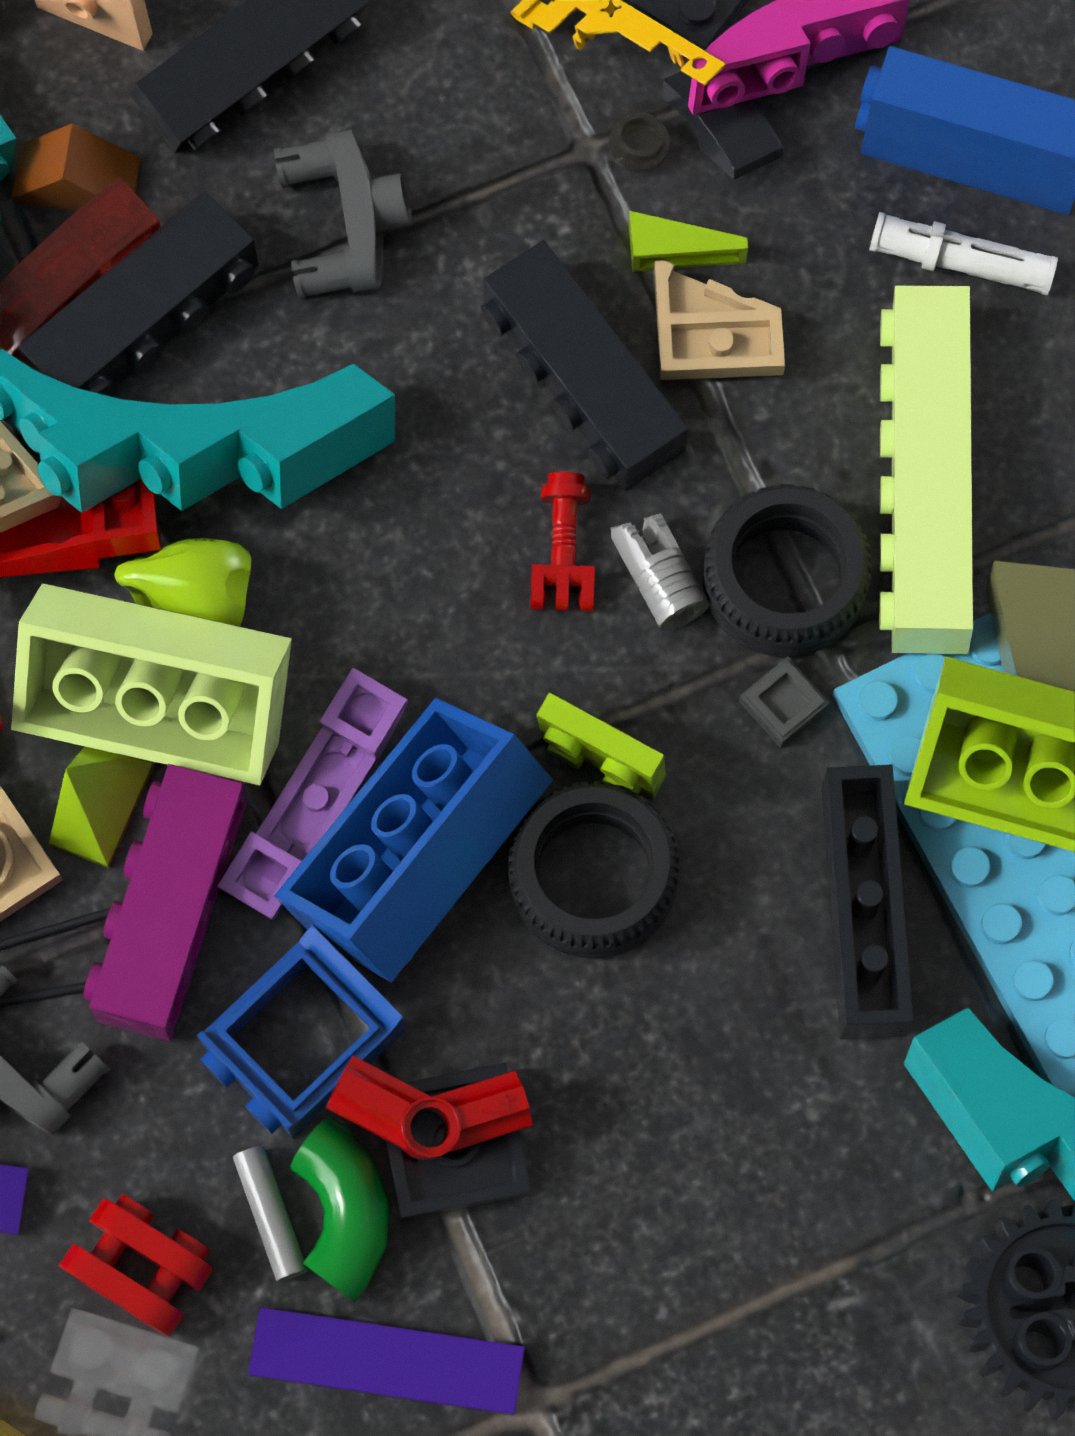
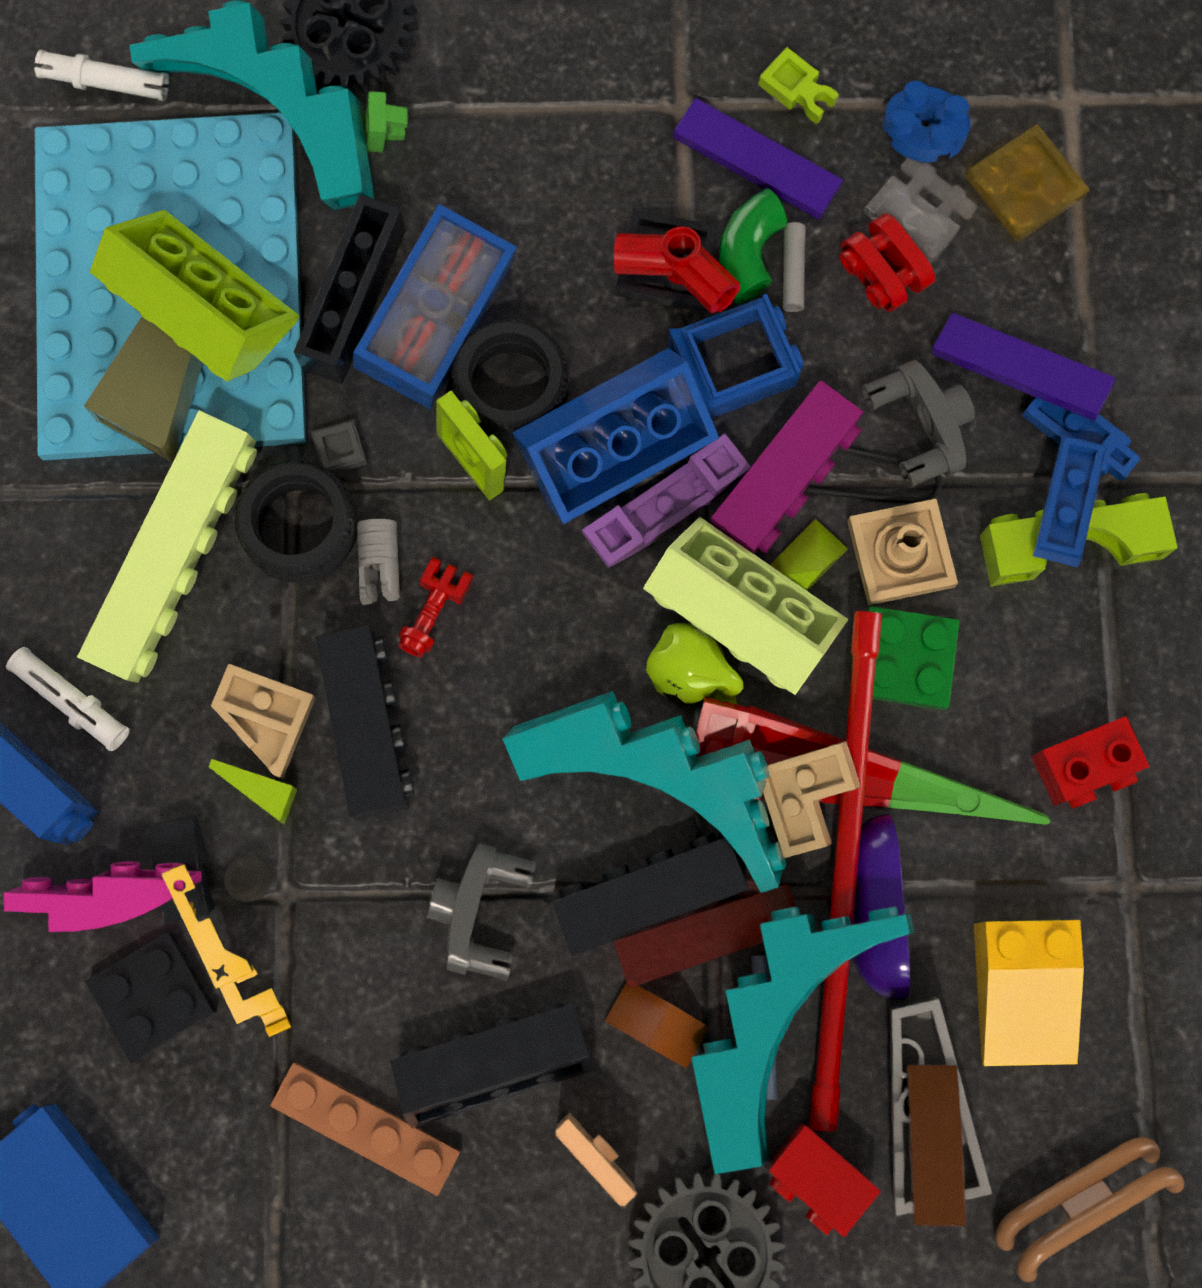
camera: 160 degrees left, 5 degrees up
(740, 927) = (434, 306): none -> clear brick
(947, 1176) = (383, 122): none -> bright green tile

